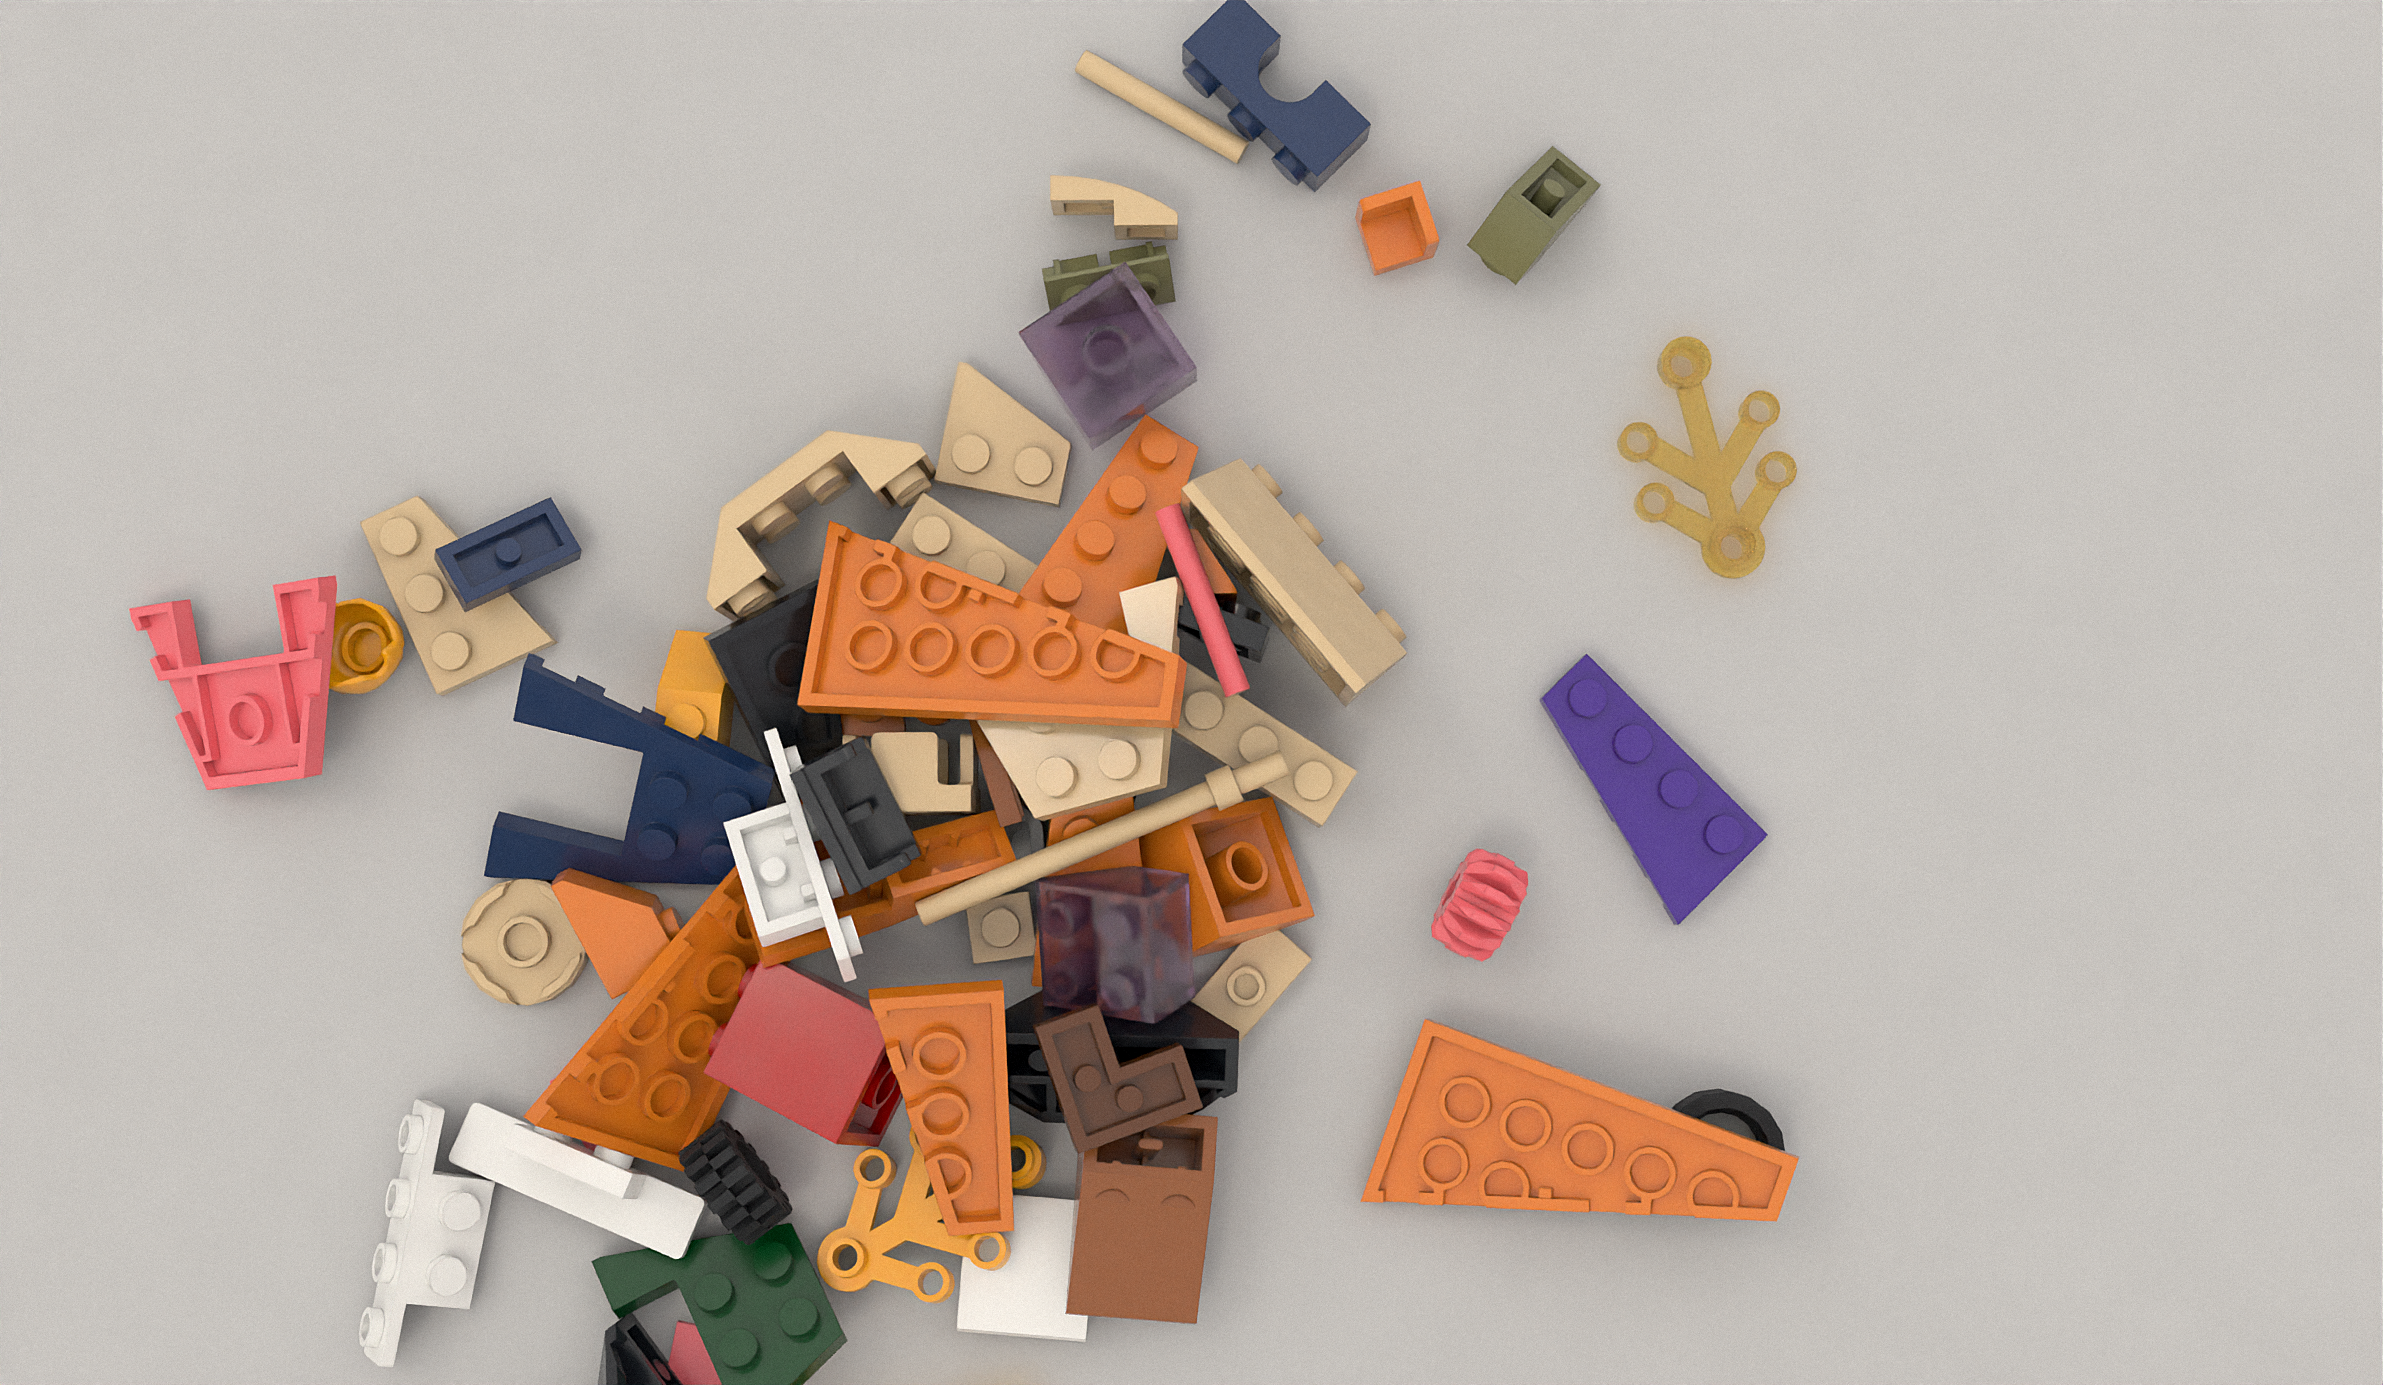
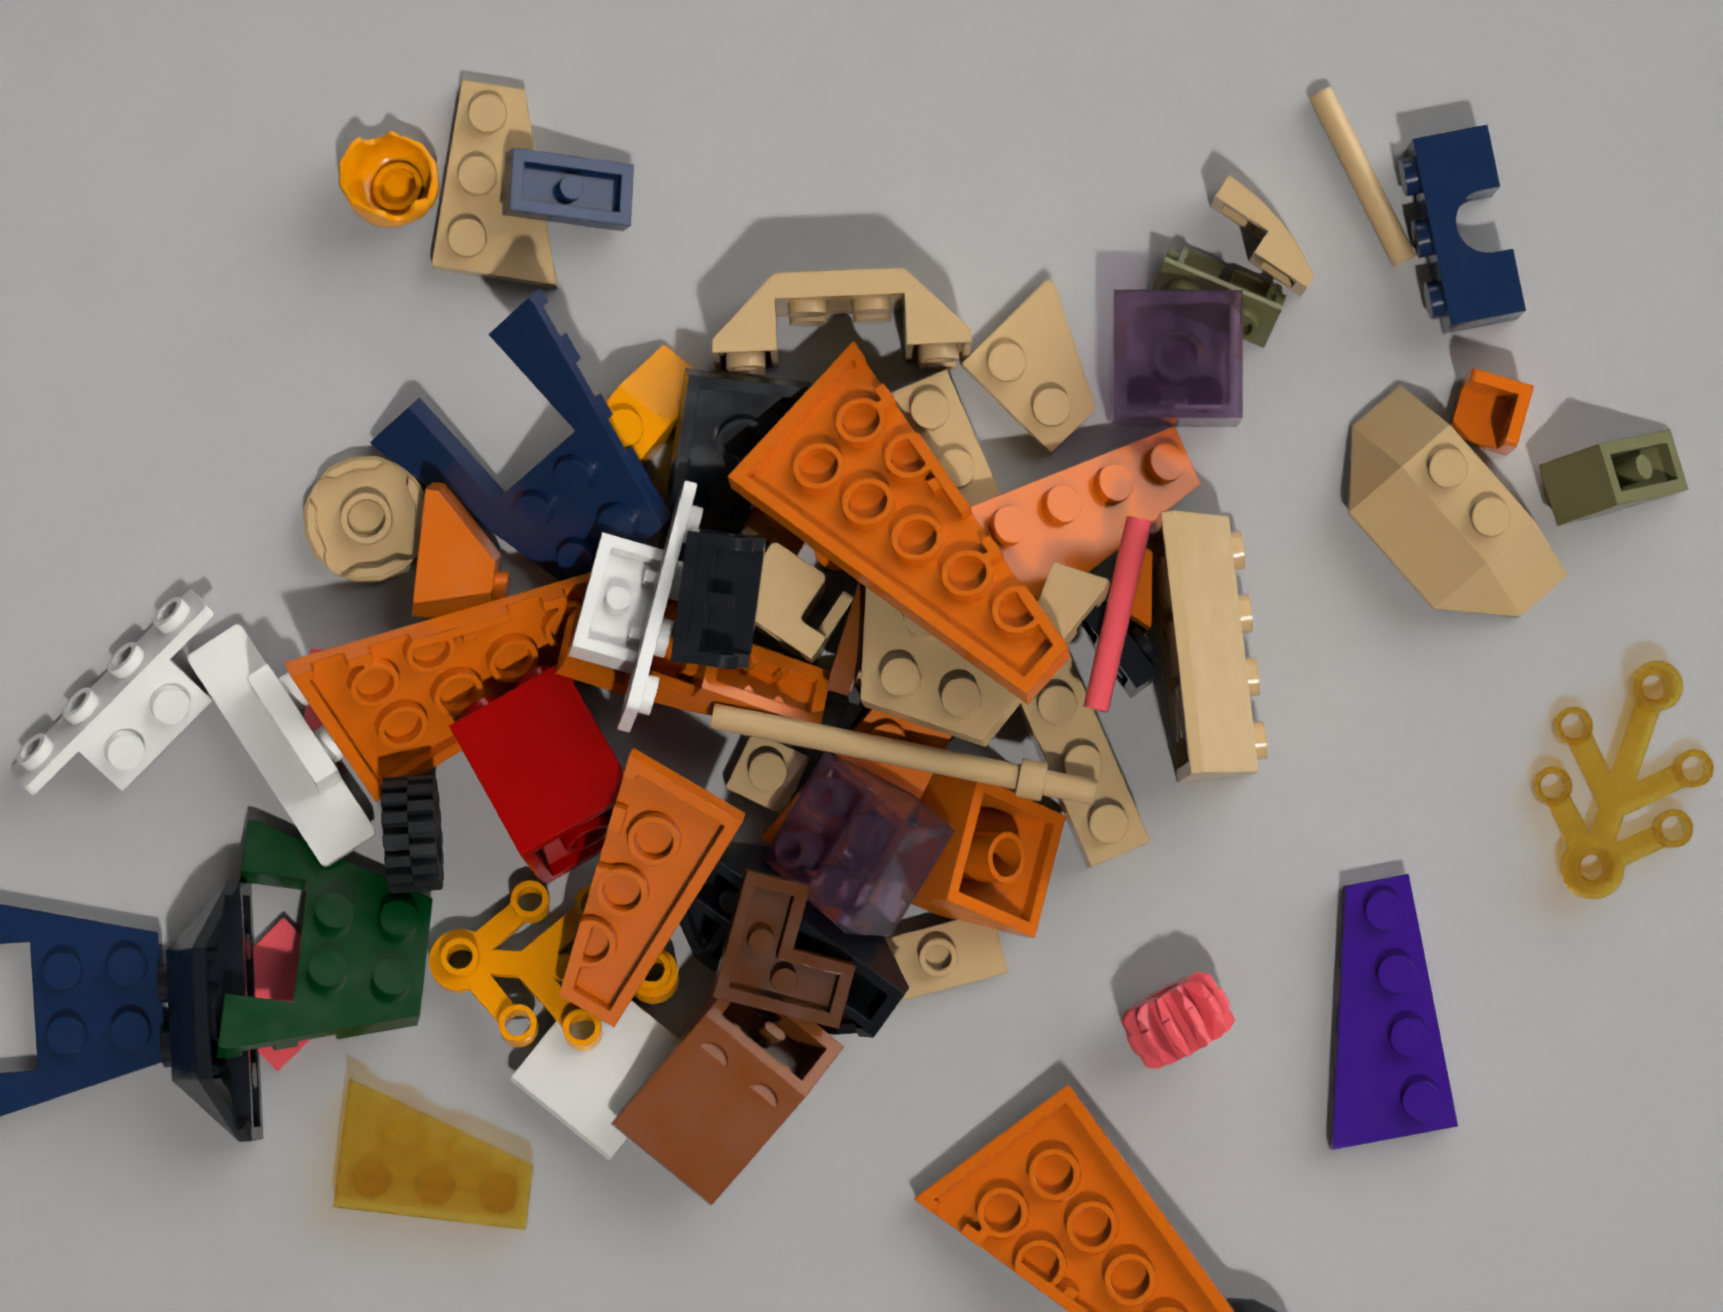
camera: 30 degrees right, 0 degrees up
(254, 714) = (273, 183): coral wing -> none
(1416, 336) = (1444, 514): none -> tan wedge

